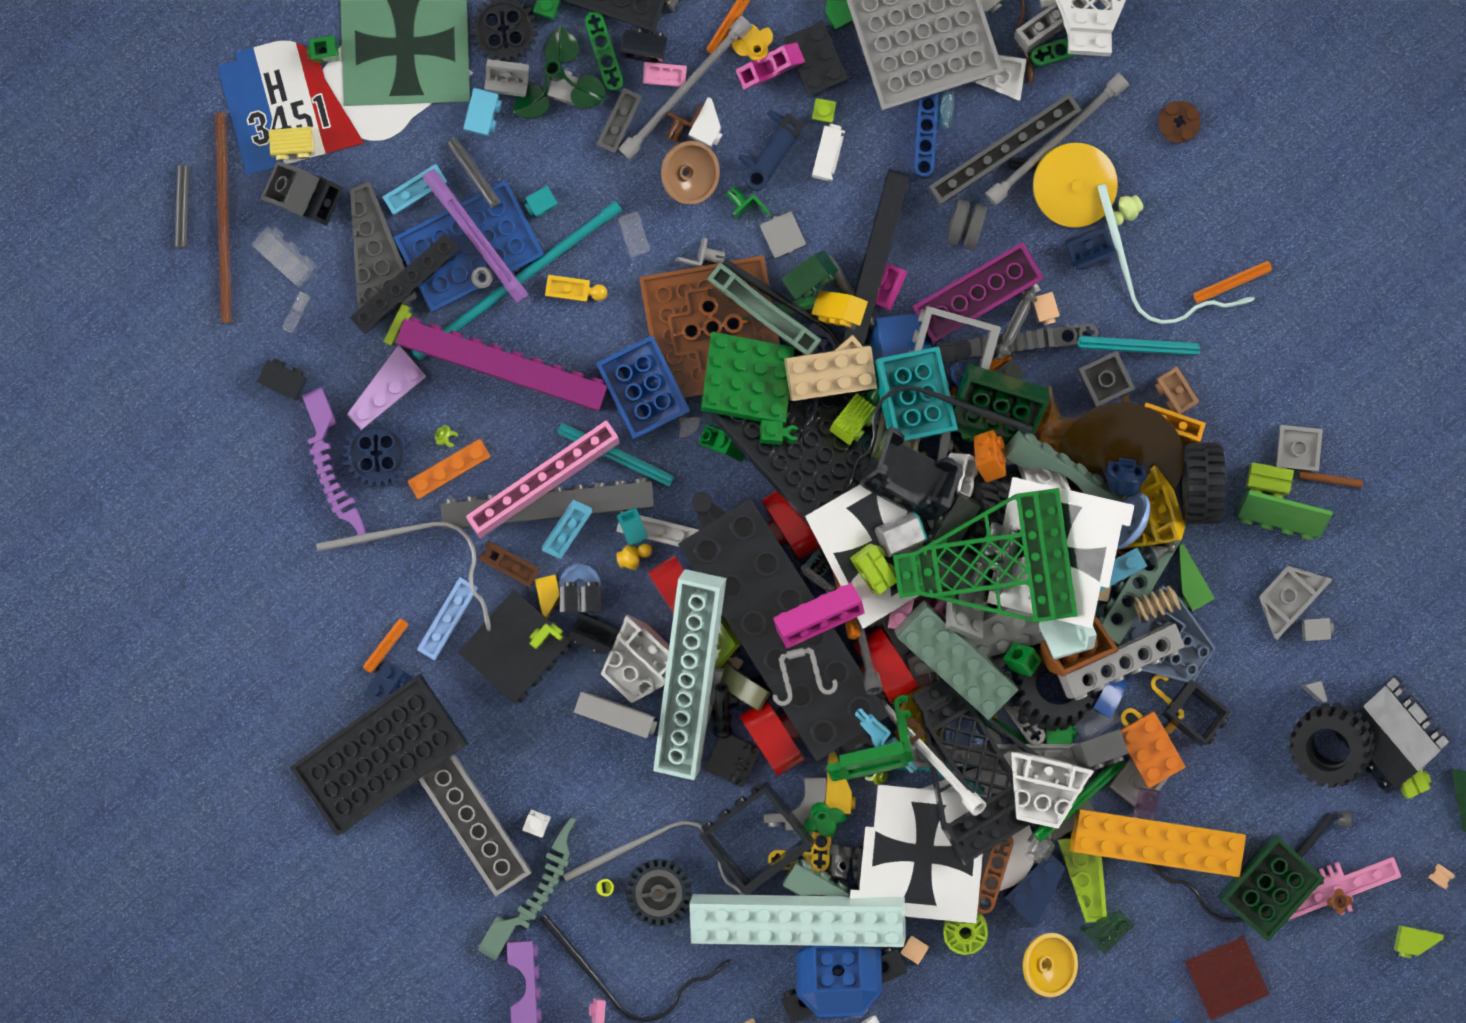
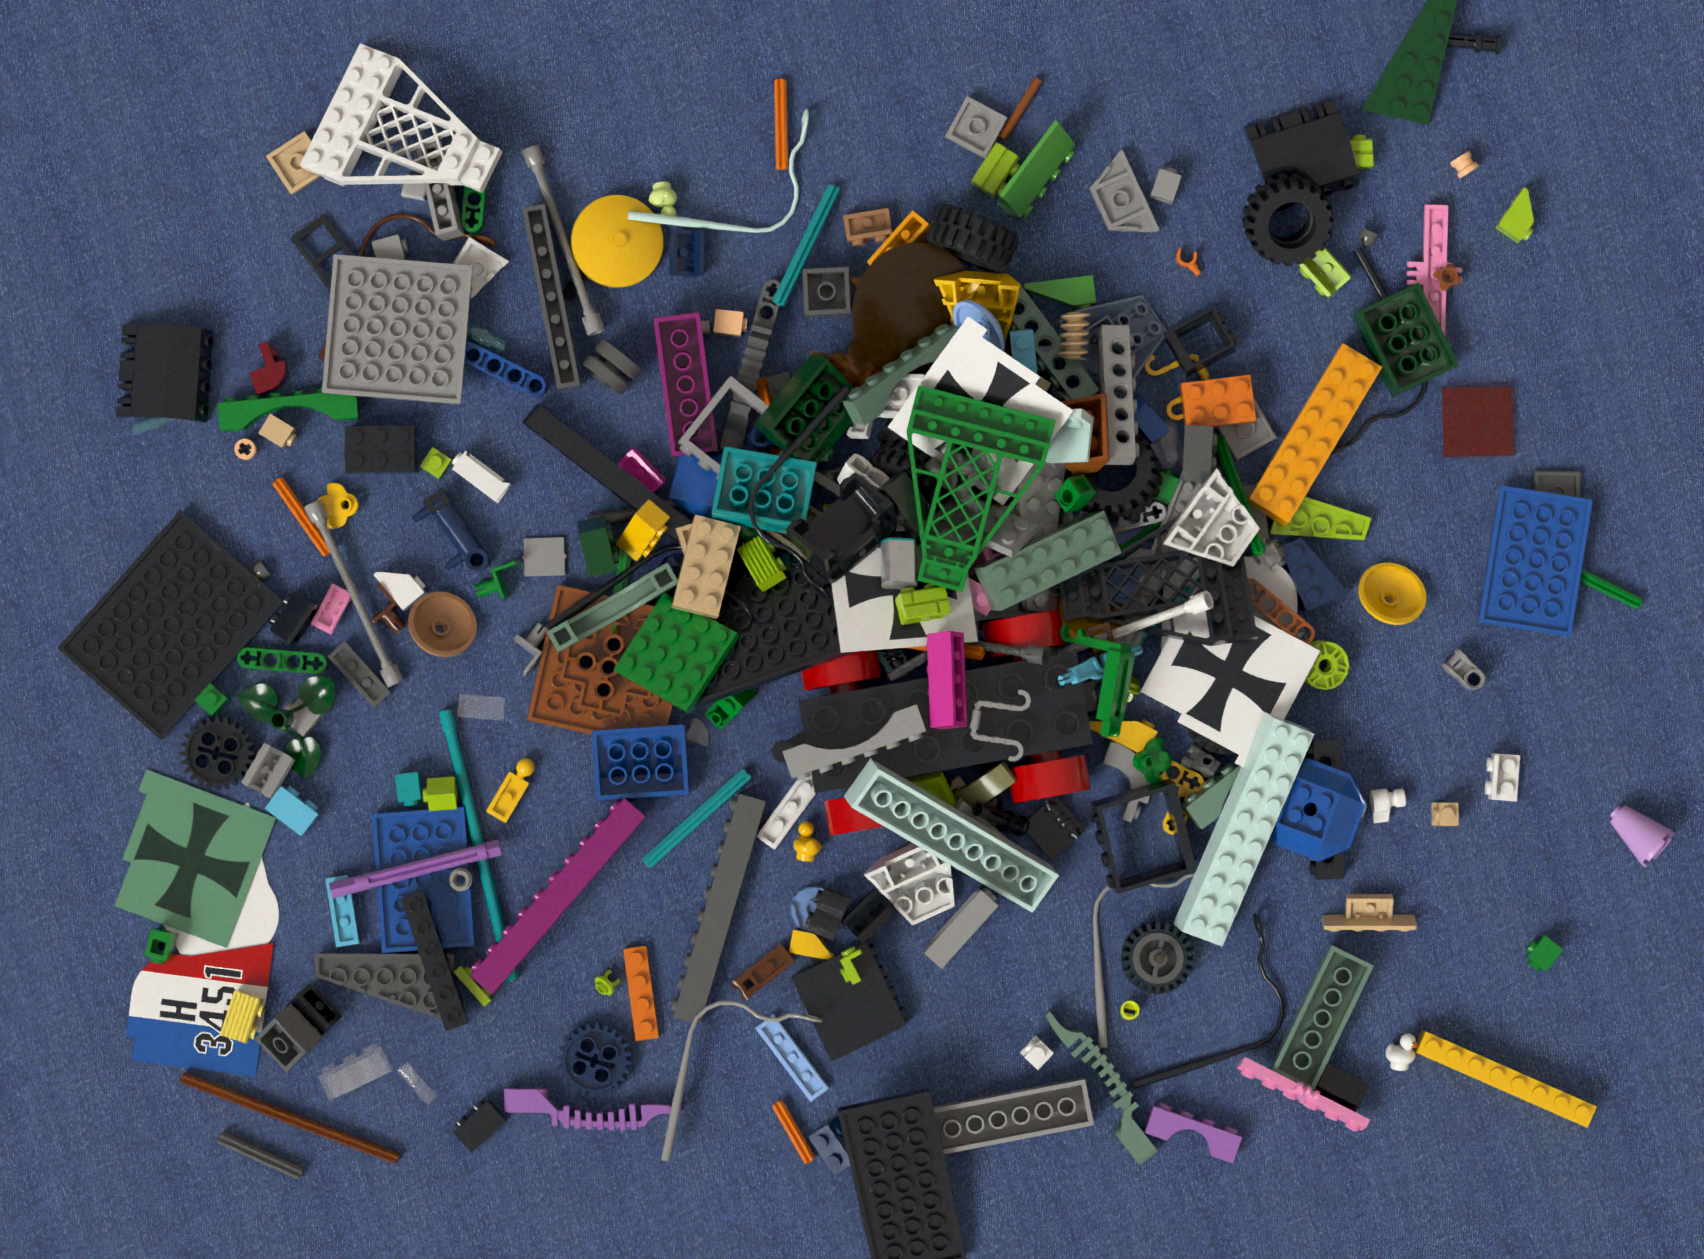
camera: 70 degrees left, 0 degrees up
(388, 386) = (531, 1019): lavender wing -> none
(473, 172) = (350, 843): dark grey axle -> none
(543, 479) = (691, 902): bright pink brick -> none
(547, 231) = (441, 793): none -> lime brick
(566, 529) = (752, 899): medium azure plate -> none
(632, 526) = (777, 831): teal brick -> none
(703, 524) = (902, 725): none -> light grey arch
(773, 433) = (743, 648): green plate -> none
(774, 64) = (368, 494): dark pink arch -> none
(914, 949) = (1320, 723): light nougat tile -> none
(990, 455) = (856, 440): orange brick -> none
(1015, 323) = (732, 359): dark grey wheel -> none
(1108, 930) = (1381, 520): clear green wing -> none
(1125, 476) = (933, 313): dark blue cone -> none
(1147, 804) = (1271, 429): clear purple bracket -> none
(1155, 553) = (1022, 315): flat silver piece -> none
(1173, 111) = (597, 123): reddish brown plate -> none
(1258, 680) = (1193, 266): none -> orange piece
(1300, 795) = (1325, 272): none -> lime bracket
(1316, 690) = (1226, 212): light grey slope -> none

